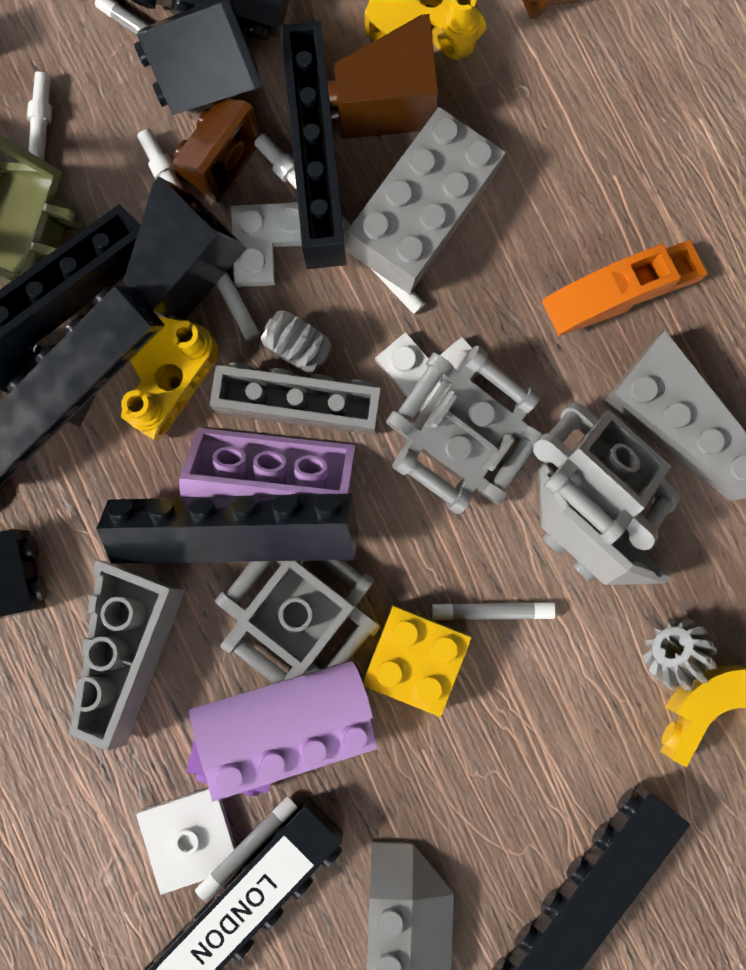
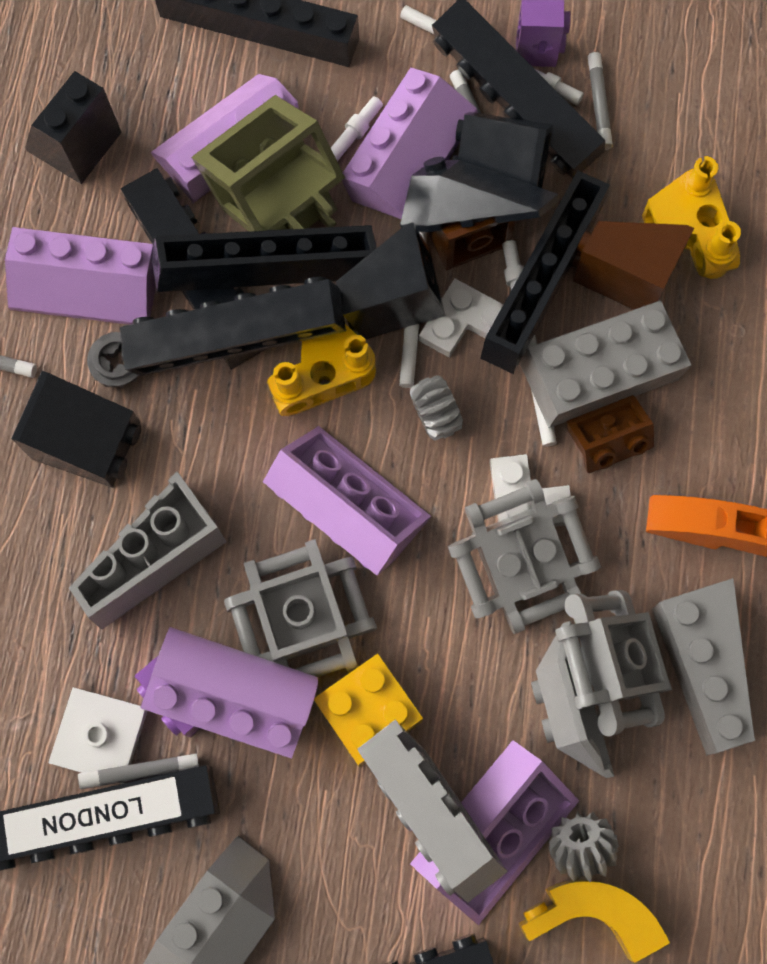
camera: 30 degrees right, 10 degrees down
(100, 101) = (410, 130): none -> lavender slope
(194, 114) = (469, 194): none -> black wedge
(229, 529) = (293, 513): black brick -> none
(295, 399) = (408, 451): light grey brick -> none
(470, 262) = (612, 433): none -> reddish brown bracket
(493, 611) = (455, 716): light grey bar -> none
(536, 718) = (432, 812): none -> light grey wedge
(593, 692) = (515, 812): none -> lavender slope

